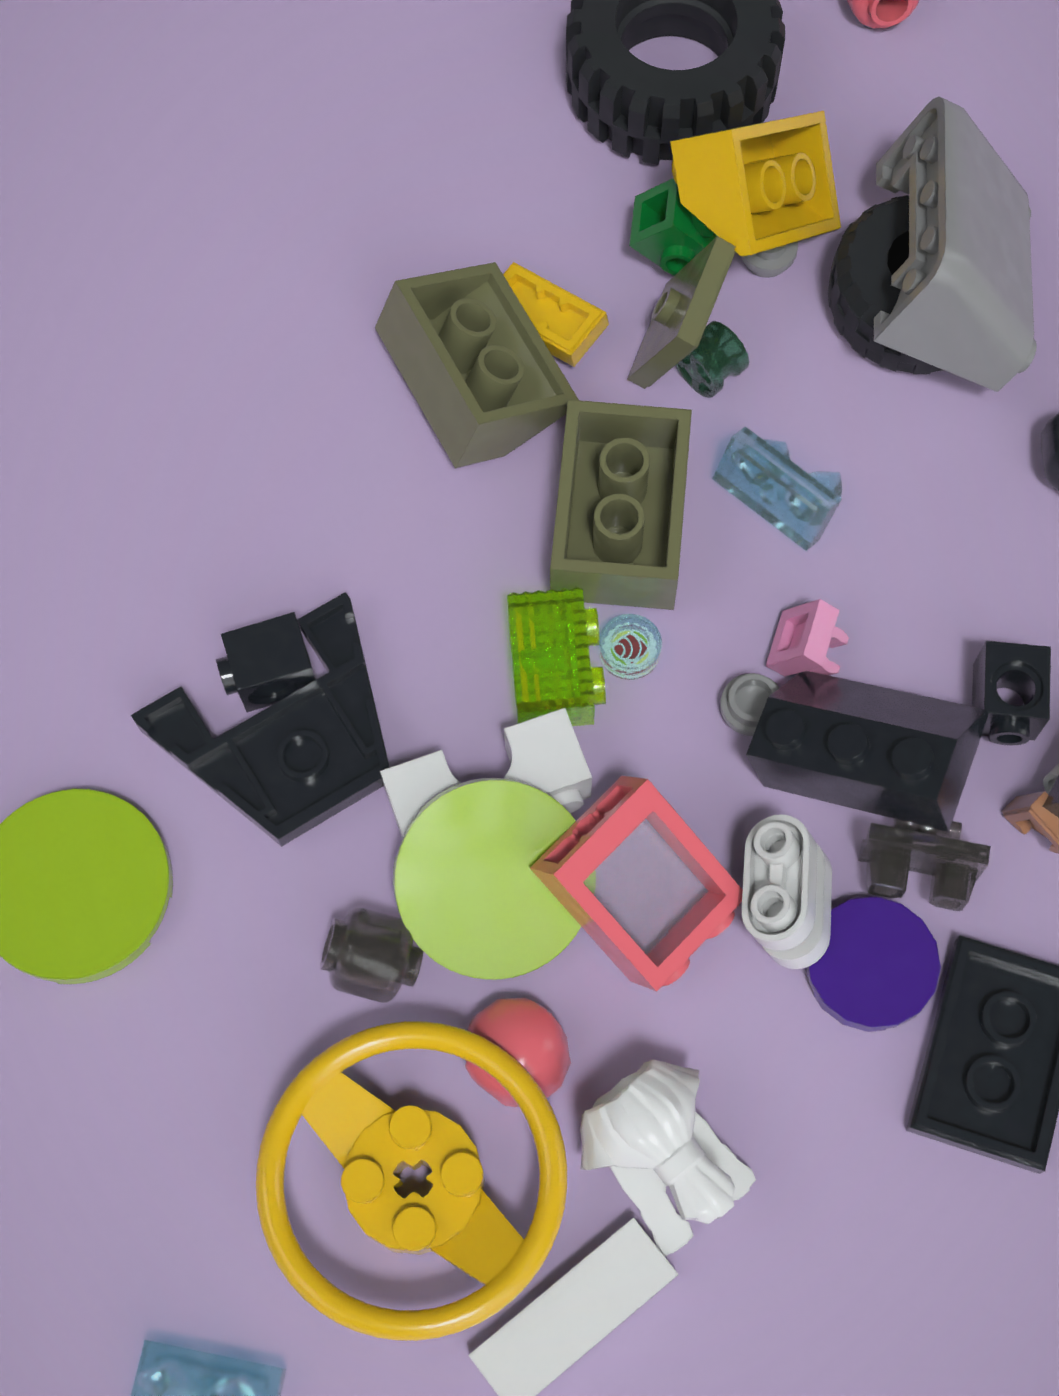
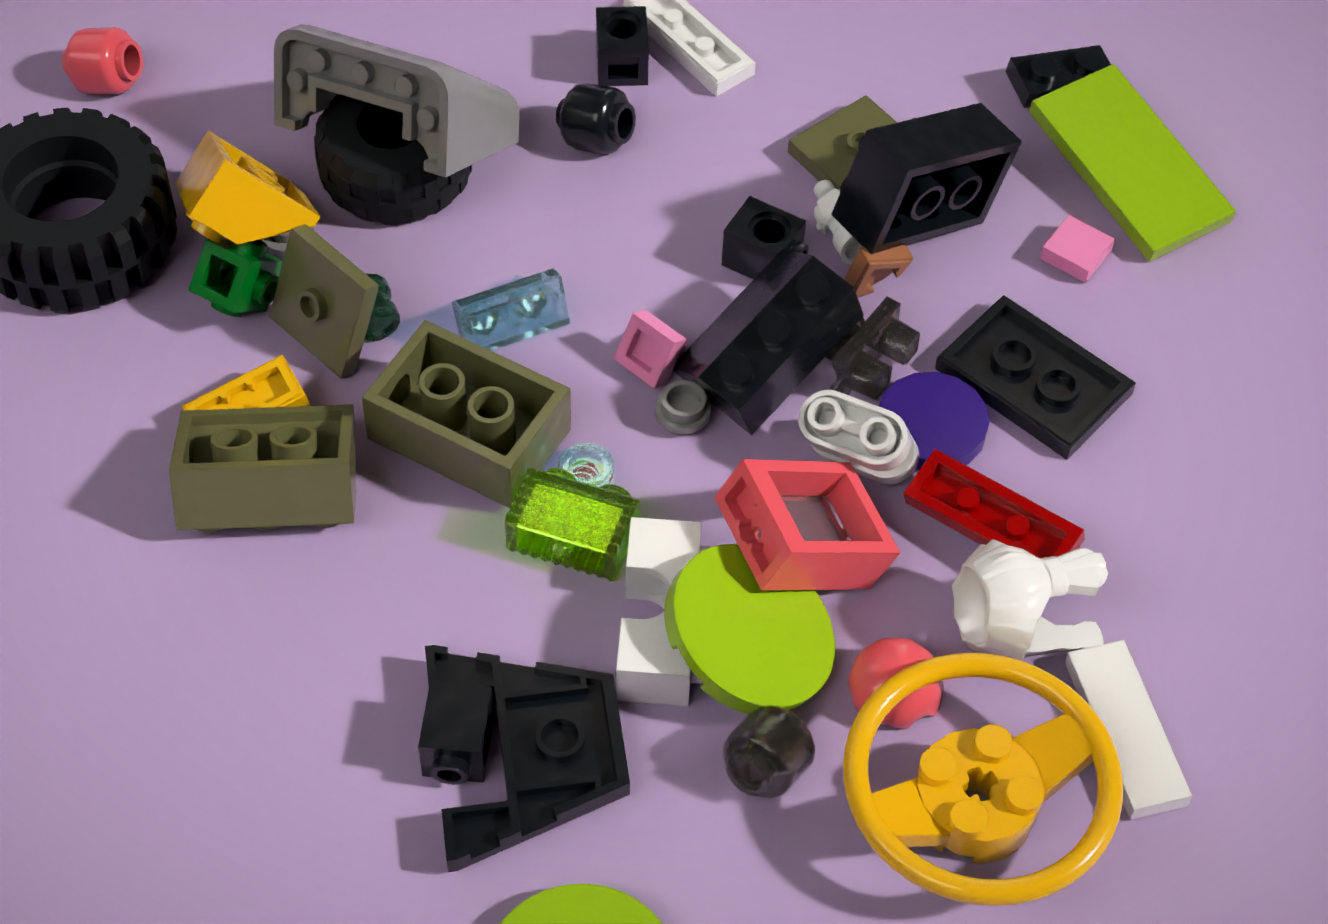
camera: 70 degrees left, 15 degrees down
(763, 1075) = (988, 509): none -> red plate

